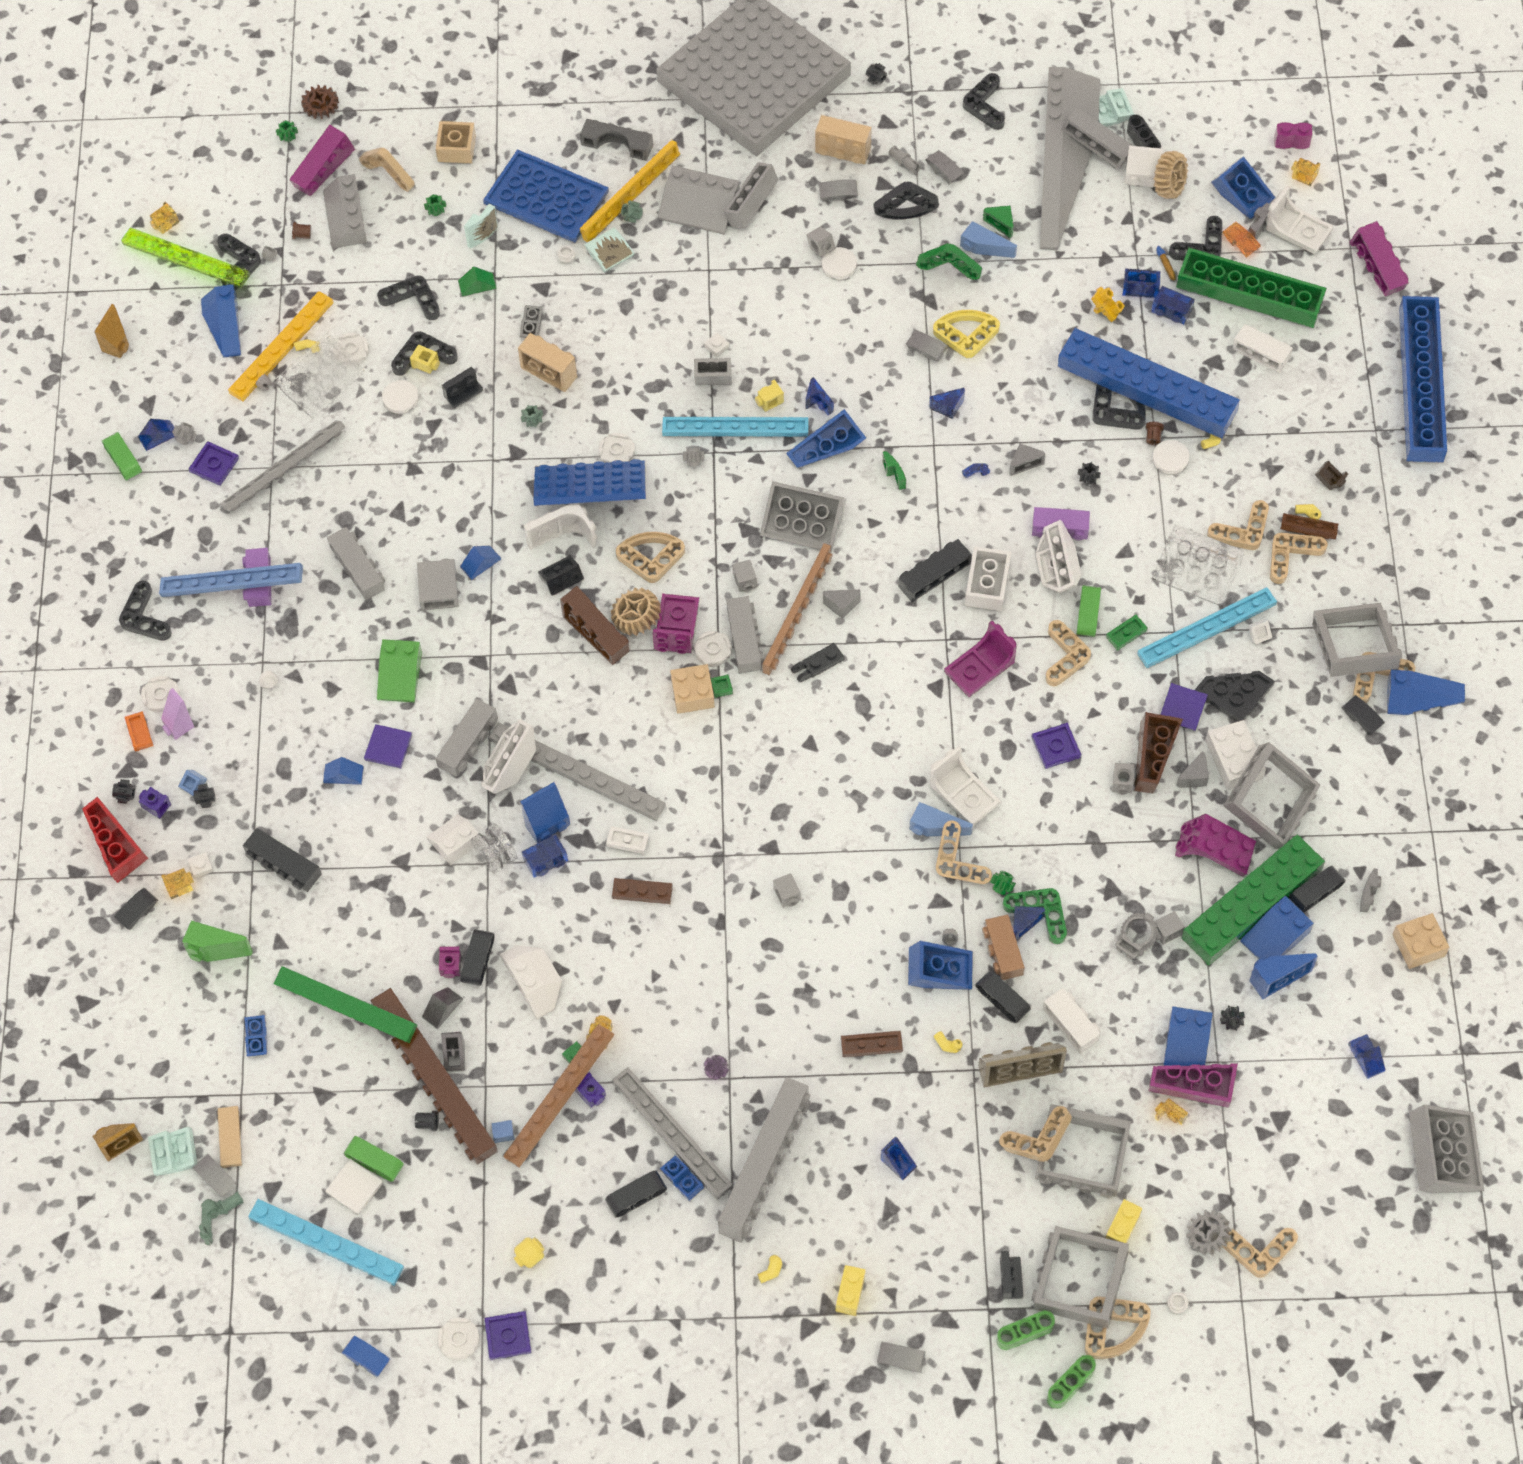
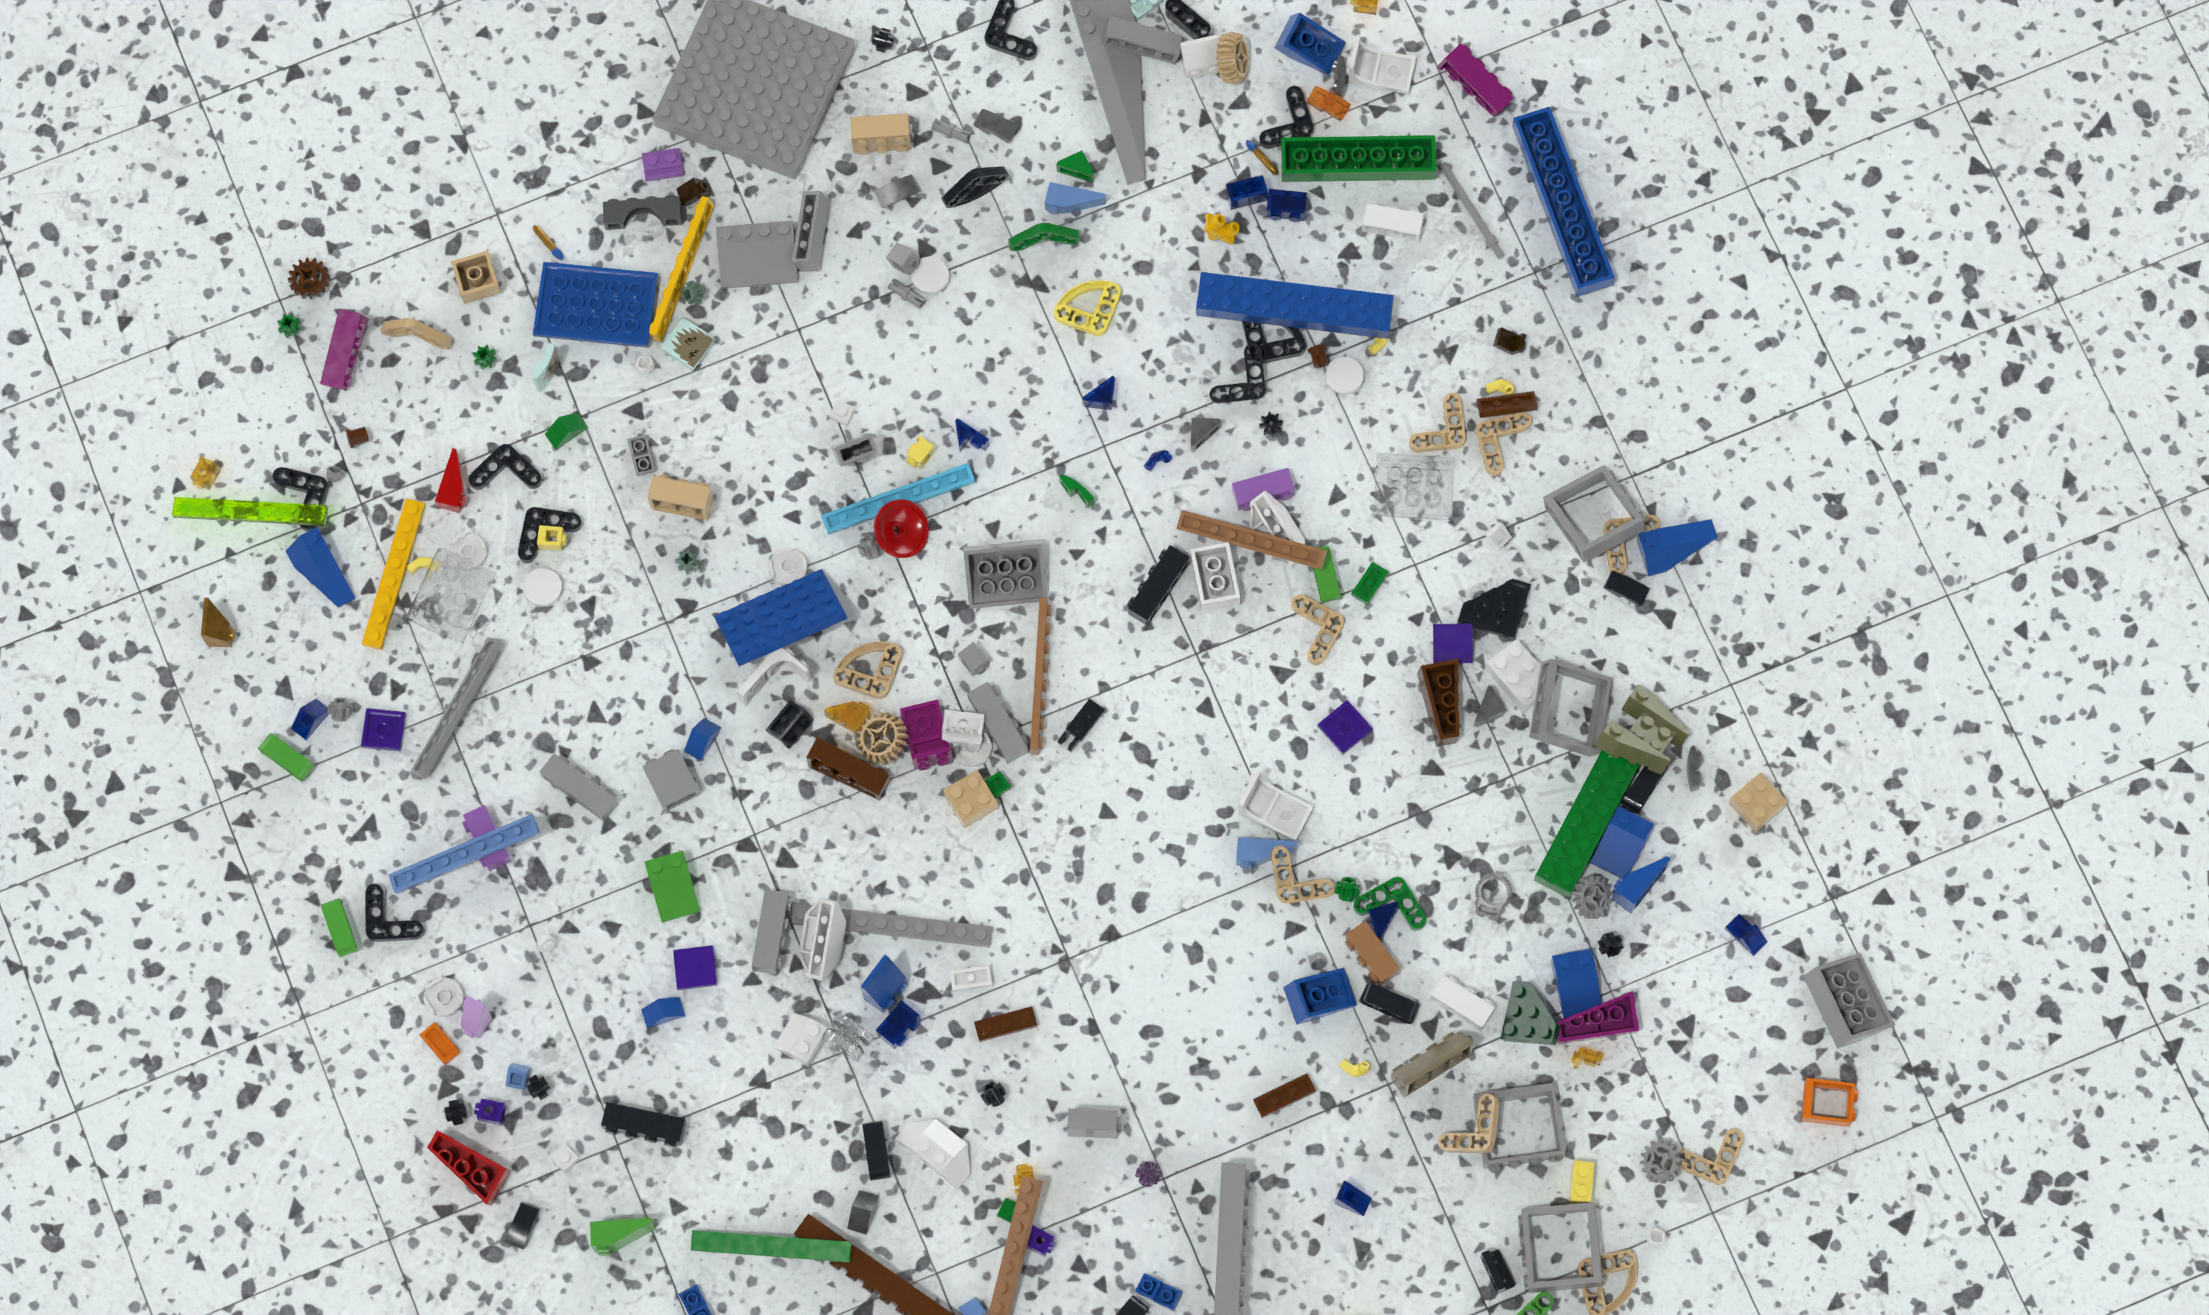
camera: 20 degrees left, 10 degrees up
(99, 606) = (339, 927): none -> bright green beam
(177, 888) = (552, 1192): clear yellow brick -> none
(344, 212) = (392, 399): light grey slope -> none
(360, 294) = (451, 490): none -> red slope
(452, 969) = (851, 1174): magenta brick -> none
(453, 1051) = (894, 1252): flat silver slope -> none
(461, 387) = (604, 557): black bracket -> none
(531, 147) = (547, 242): none -> pearl gold piece
(604, 946) = (993, 1094): none -> black gear
(614, 582) = (849, 715): none -> clear yellow slope
(650, 110) = (662, 164): none -> medium lavender plate
(665, 135) = (692, 191): none -> dark brown bracket
(672, 1133) = (1132, 1252): light grey plate -> none
(683, 1002) = (1093, 1123): none -> light grey brick
(710, 624) = (962, 727): none -> white bracket
(736, 446) = (910, 525): none -> red dish
(787, 890) = (1145, 973): light grey brick -> none
(813, 270) = (906, 293): none -> light grey pin
(832, 438) = (1001, 478): blue wedge -> none
(841, 601) = (1079, 652): flat silver slope -> none
(929, 346) = (1056, 338): flat silver slope -> none
(983, 661) = (1242, 666): magenta bracket -> none
(1033, 557) = (1251, 539): none -> medium nougat plate
(1078, 436) = (1246, 387): none -> black beam
(1123, 771) = (1422, 731): light grey brick -> none
(1129, 1055) = (1528, 1017): none -> plate
(1169, 928) = (1520, 876): light grey brick -> none
(1207, 627) = (1445, 550): medium azure plate -> none
(1217, 842) = (1533, 774): magenta bracket -> none
(1230, 968) = (1591, 897): none -> light grey gear
(1338, 844) = (1648, 735): none -> olive wedge
(1345, 390) = (1491, 240): none -> light grey bar
(1400, 1222) = (1852, 1095): none -> orange window

